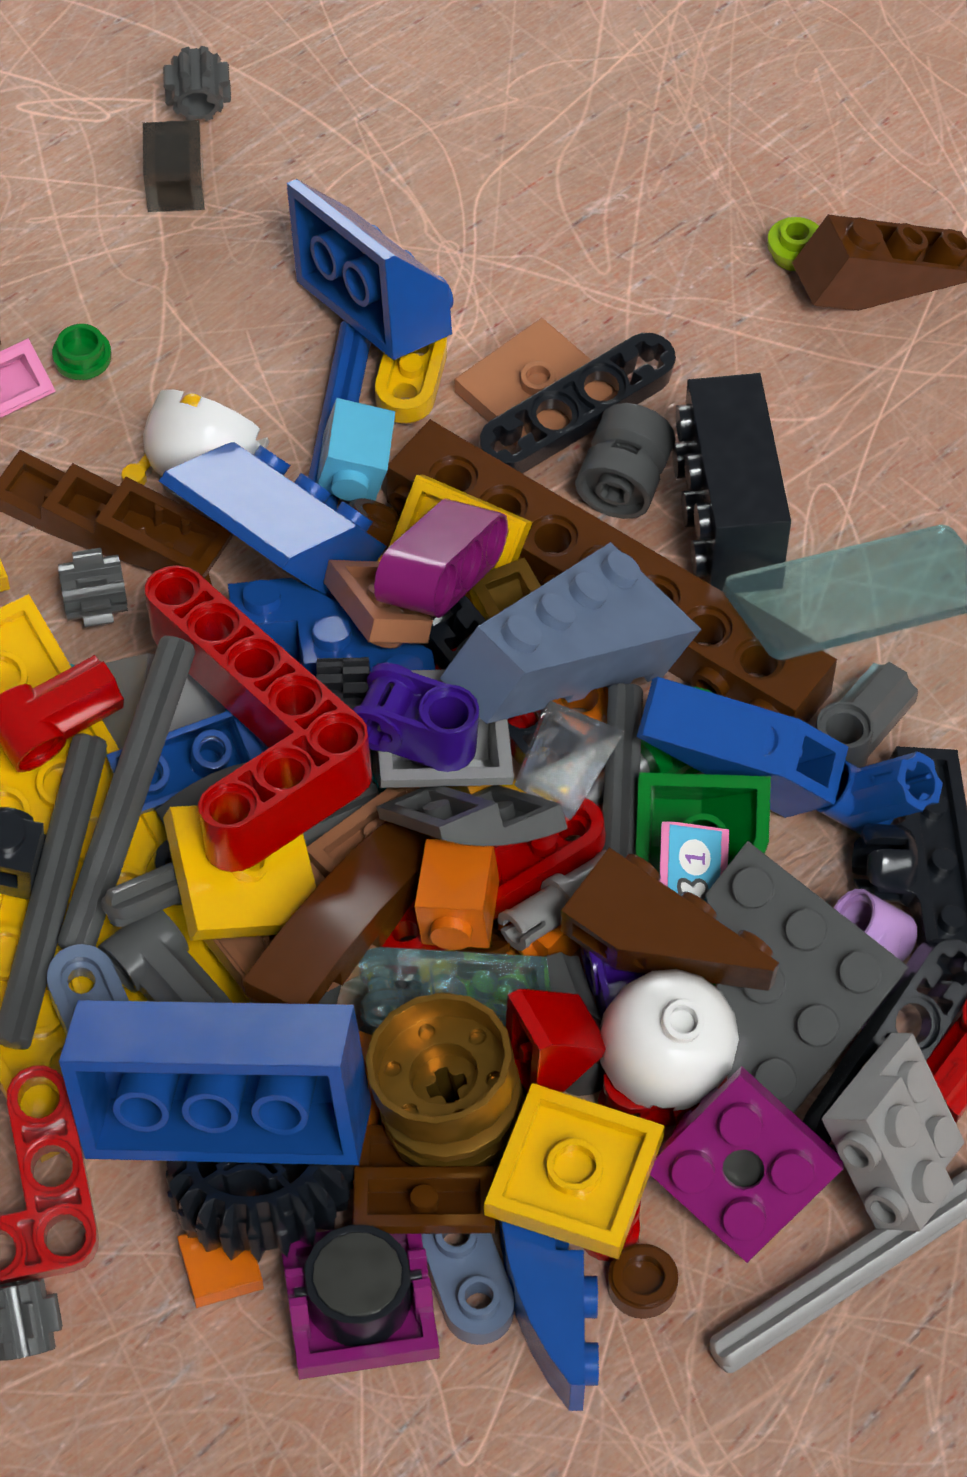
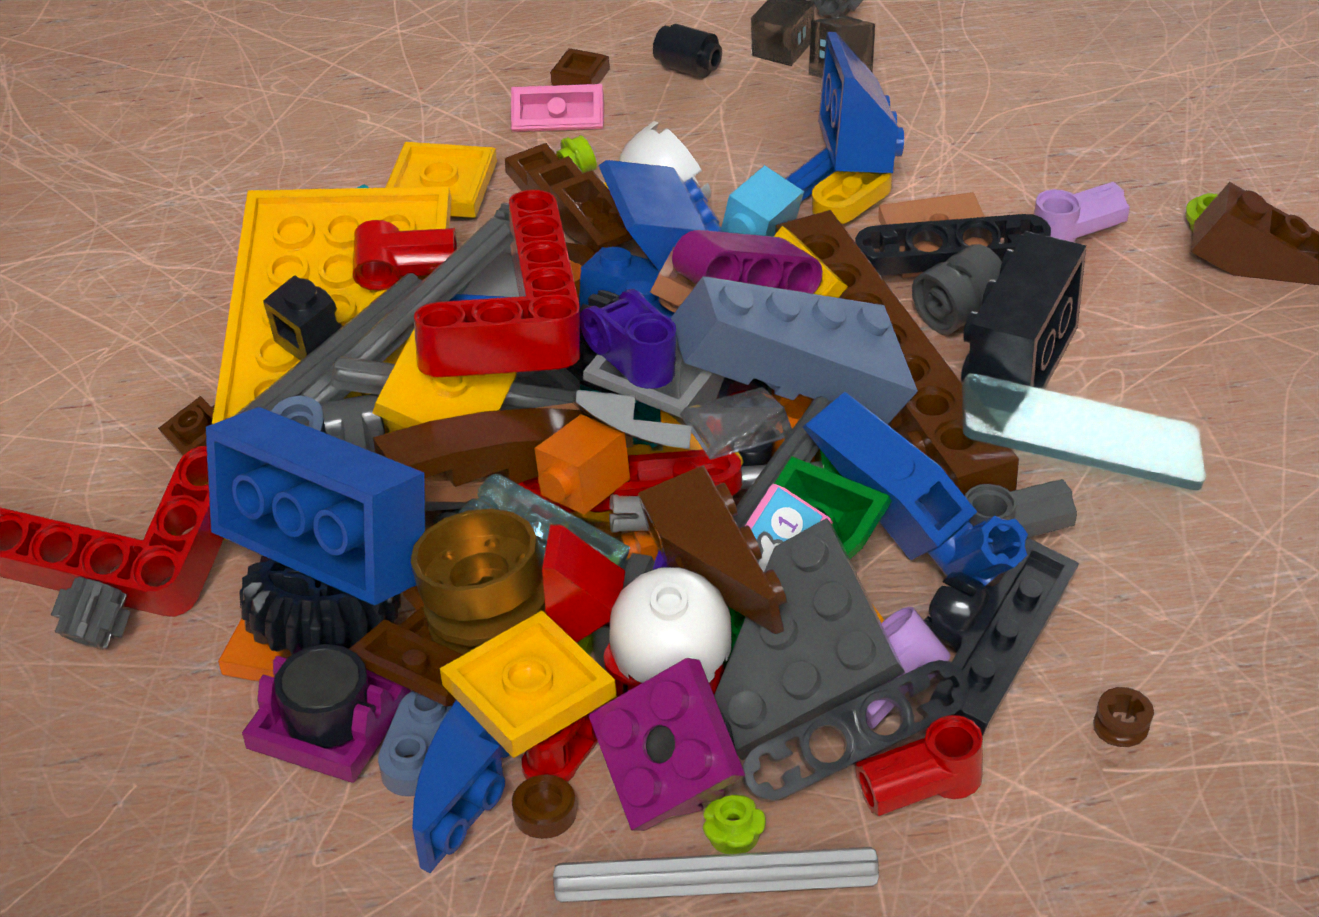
camera: 35 degrees right, 15 degrees down
(68, 447) = (579, 151): none -> lime plate
(81, 352) = (635, 108): green plate -> none
(85, 242) = (687, 50): none -> black brick
(262, 172) = (855, 32): none -> clear smoke brick
(675, 299) = (1082, 212): none -> lavender piece
(840, 1219) = (736, 835): none -> lime plate
(896, 1136) = (802, 779): light grey plate -> none

